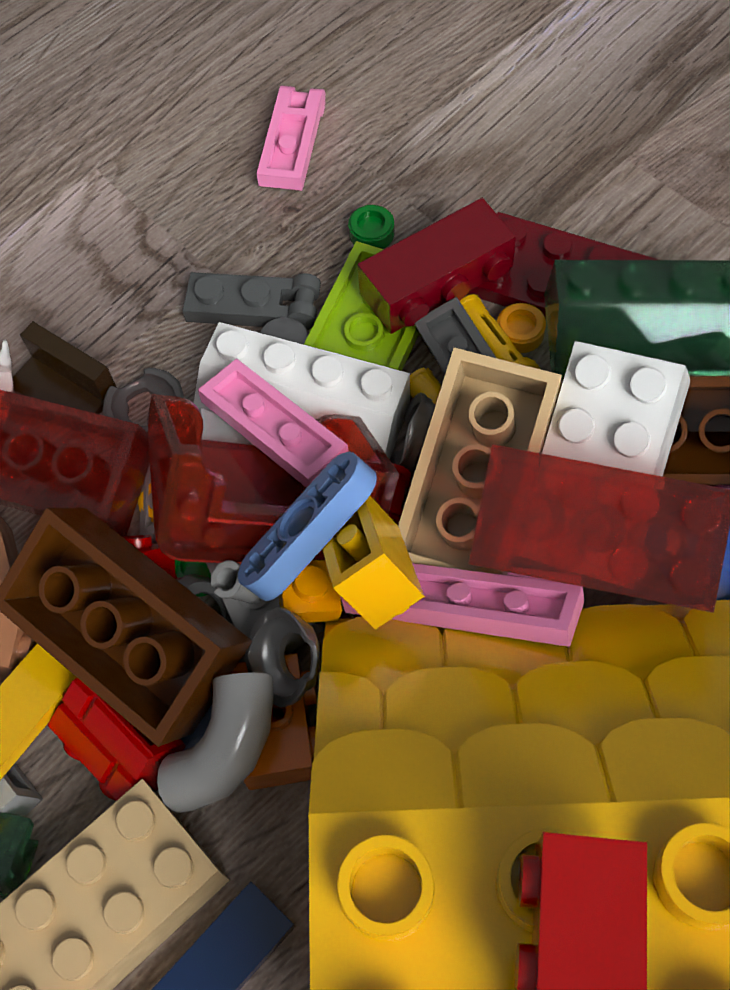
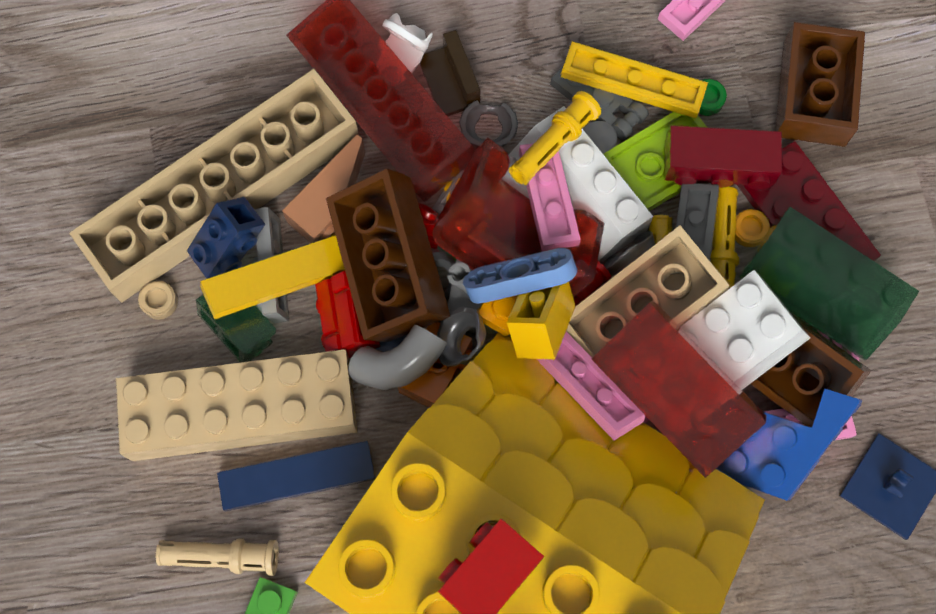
camera: 30 degrees right, 10 degrees up
(238, 336) = (565, 127): none -> yellow pin
(278, 252) = (634, 79): none -> yellow tile
(482, 137) = (820, 84): none -> reddish brown brick

